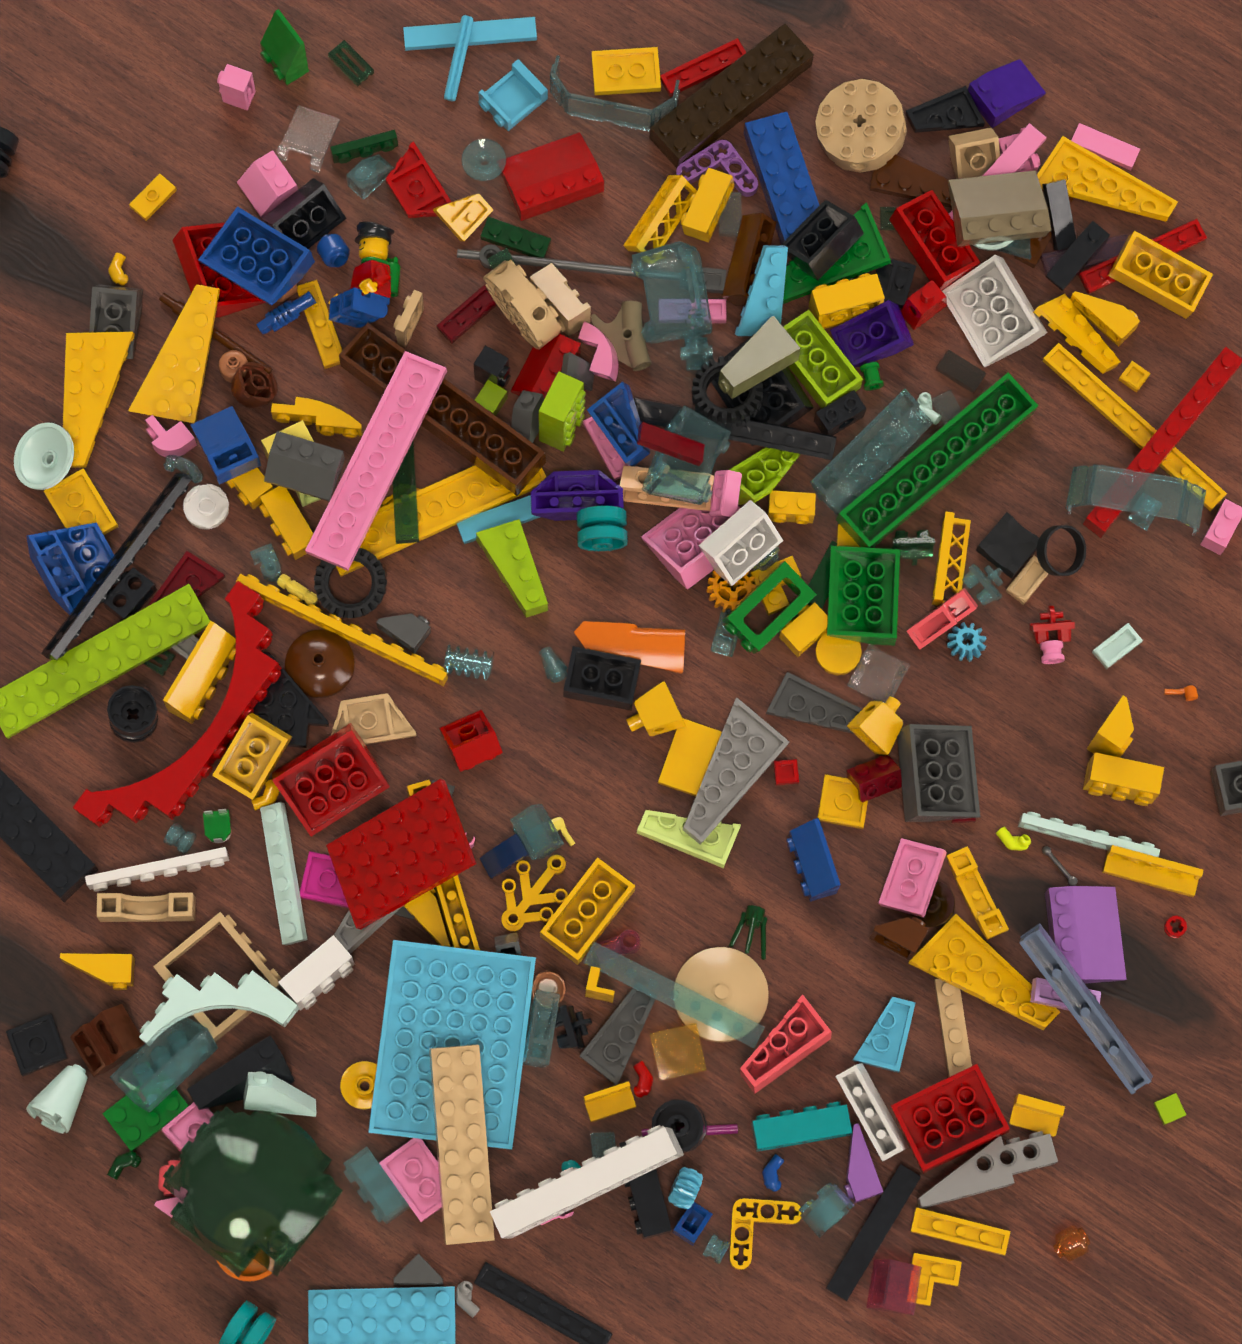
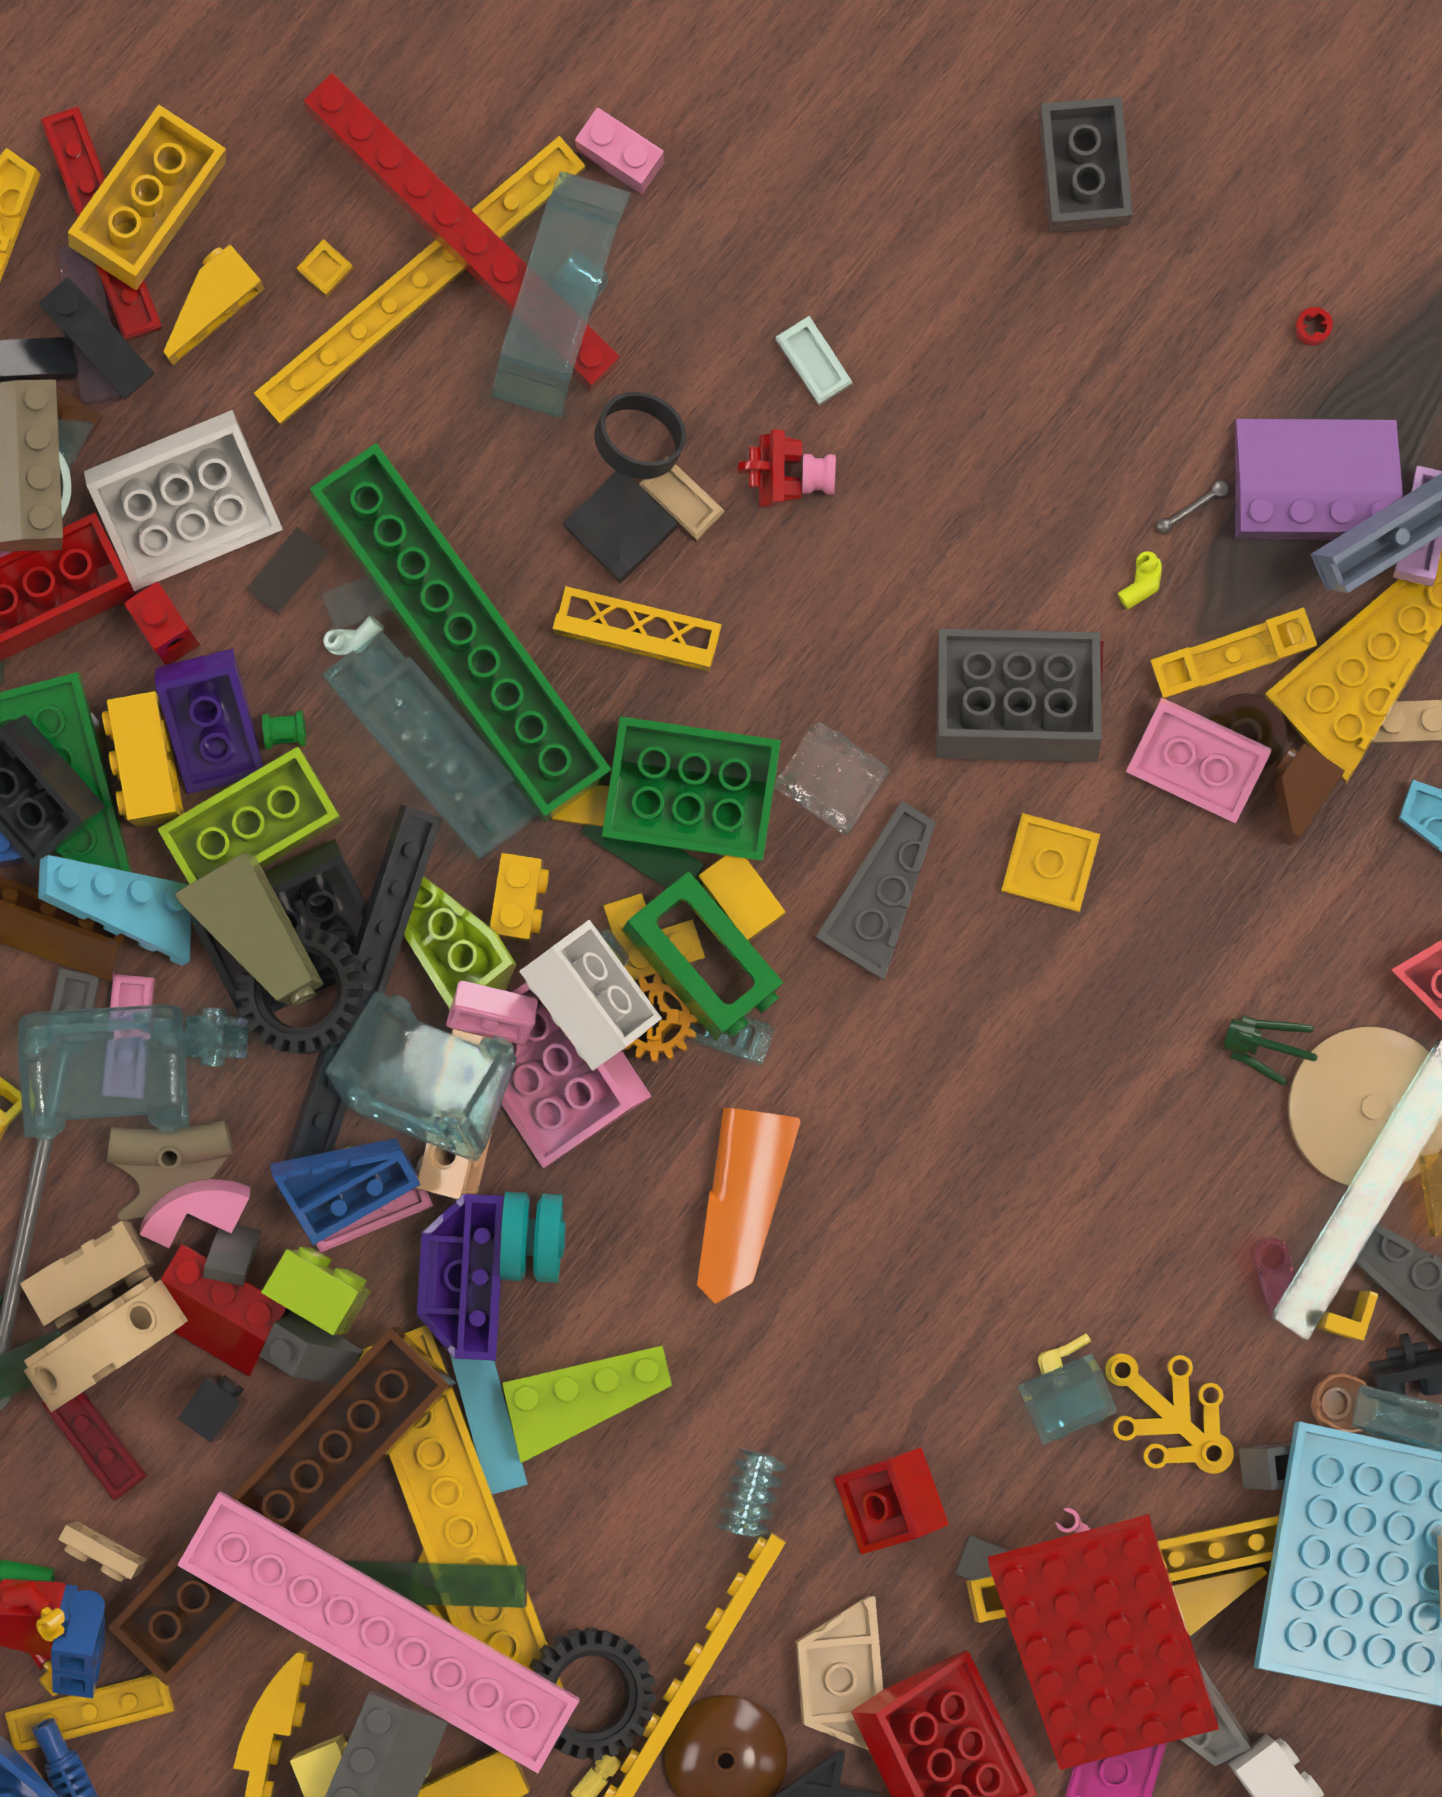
camera: 80 degrees left, 10 degrees up
(406, 630) = (682, 1598): dark grey slope -> none
(492, 397) = (267, 1415): lime brick -> none
(504, 855) = (1103, 1459): dark blue slope -> none
(553, 665) = (767, 1345): clear light blue cone -> none
(587, 911) = (1214, 1324): yellow brick -> none
(602, 678) = (803, 1261): black brick -> none
(656, 712) = (870, 1171): yellow torso -> none
(668, 830) = (1094, 1123): yellowish green wing -> none
(670, 444) = (395, 1101): dark red tile -> none
(689, 757) = (952, 1118): yellow tile -> none
(740, 758) = (966, 1035): light grey wing -> none
(786, 772) = (990, 956): red tile -> none
(813, 860) = (1157, 927): blue slope -> none
(837, 655) = (791, 846): yellow tile -> none
(840, 414) = (352, 794): black brick -> none
(875, 777) = (1016, 804): dark red bracket -> none
(878, 725) = (926, 789): yellow torso -> none
(896, 281) = (111, 667): black wing -> none
(914, 548) = (612, 692): clear green hips -> none
(942, 618) = (742, 655): coral slope -> none
(956, 639) = (789, 606): medium azure gear -> none
(975, 576) = (699, 567): clear light blue hips -> none
(1079, 333) = (223, 363): yellow wing -> none
(1079, 834) = (1154, 435): light aqua plate -> none
(1115, 733) = (980, 386): yellow slope -> none
(1123, 779) = (1061, 381): yellow brick -> none
(1152, 871) = (1217, 354): yellow fence -> none
(1189, 691) = (907, 247): orange hand -> none

